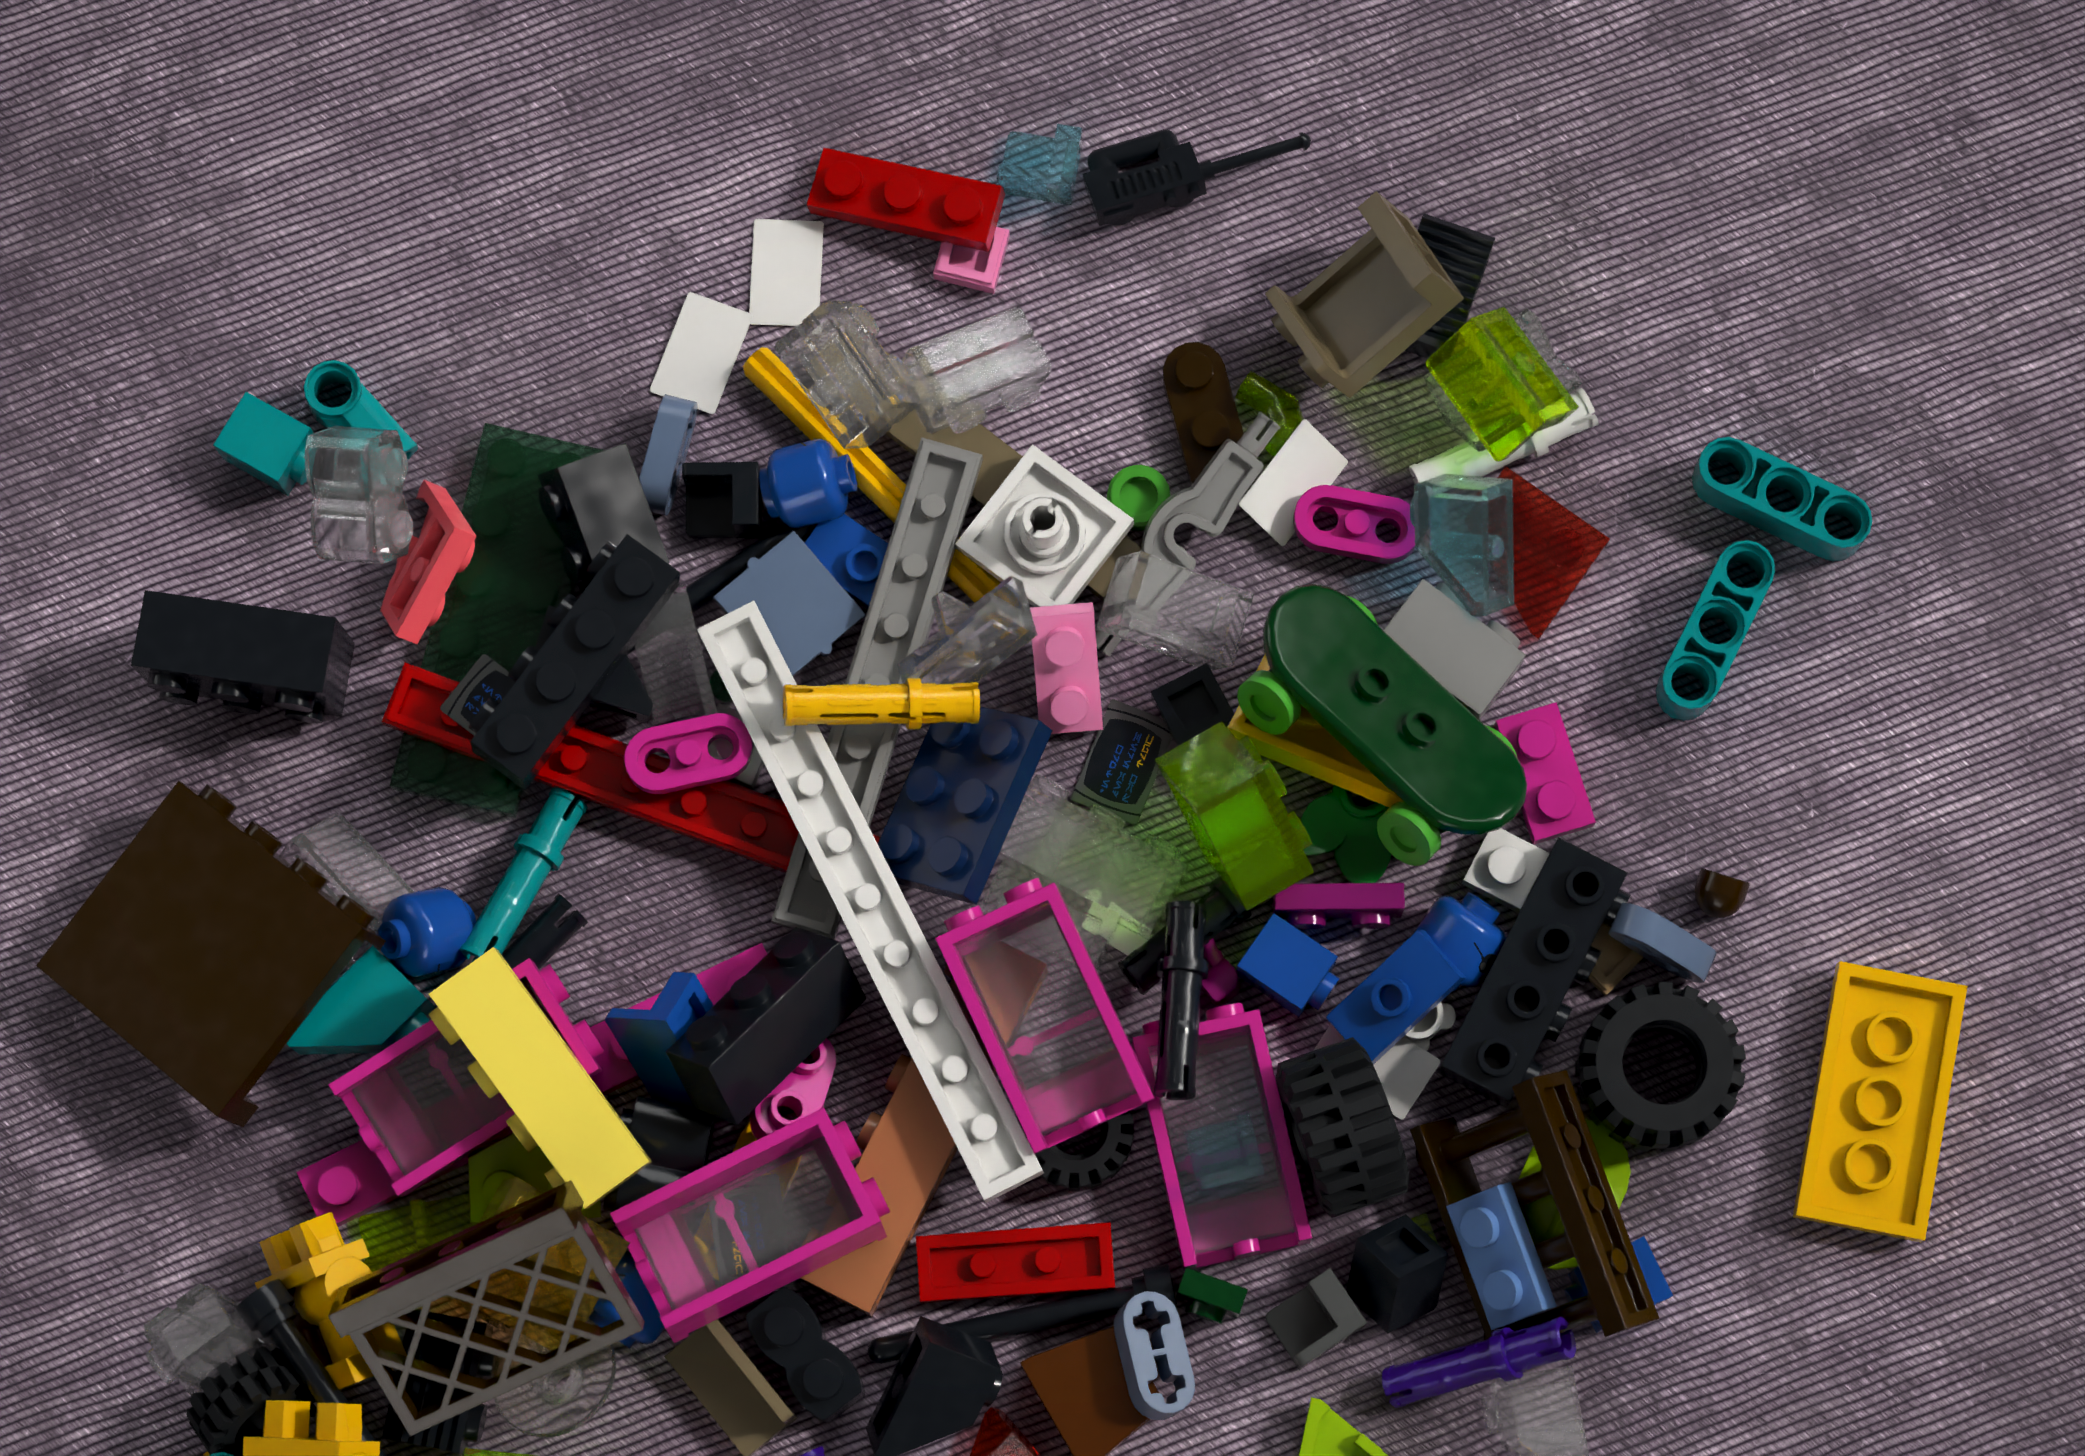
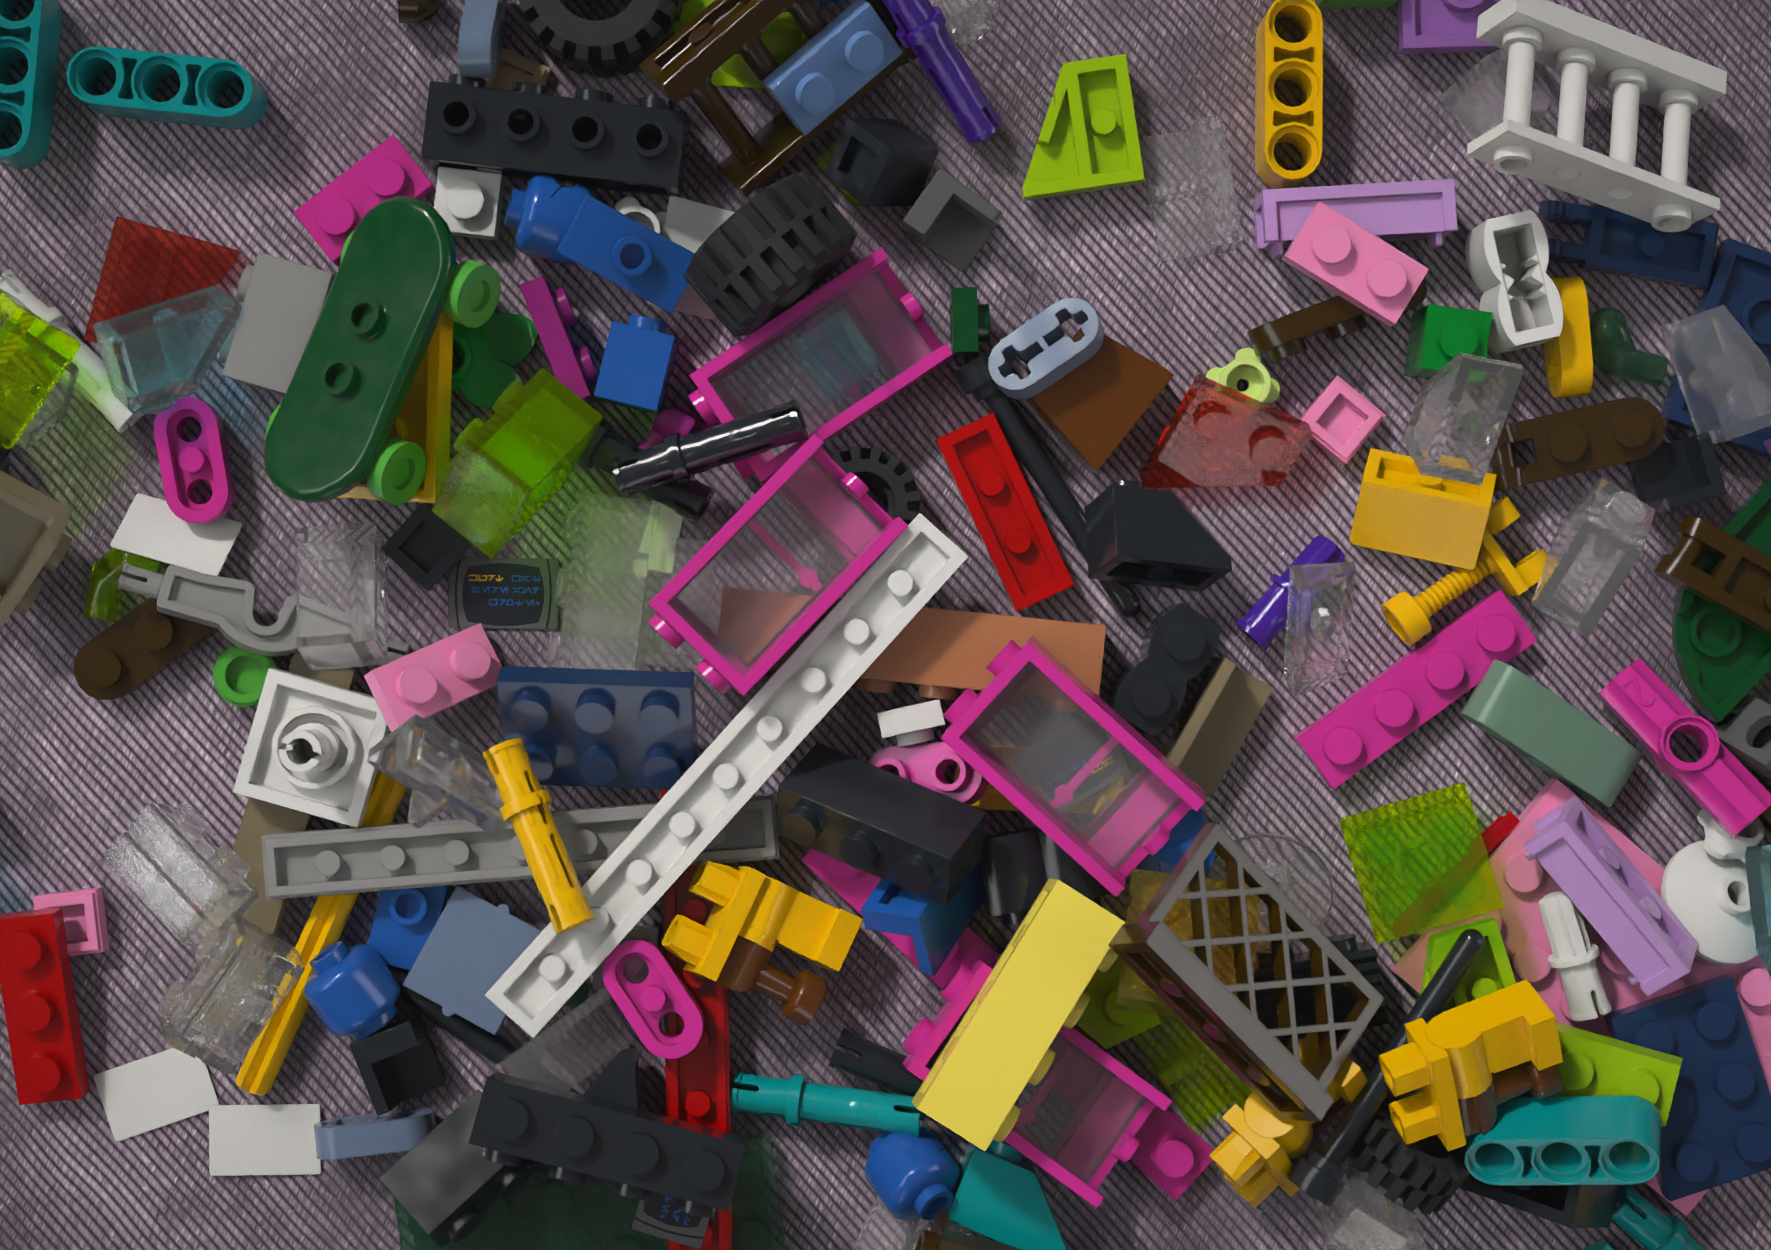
camera: 115 degrees left, 10 degrees up
(721, 865) = (746, 924): none -> yellow hips
(850, 1094) = (912, 722): none -> white plate

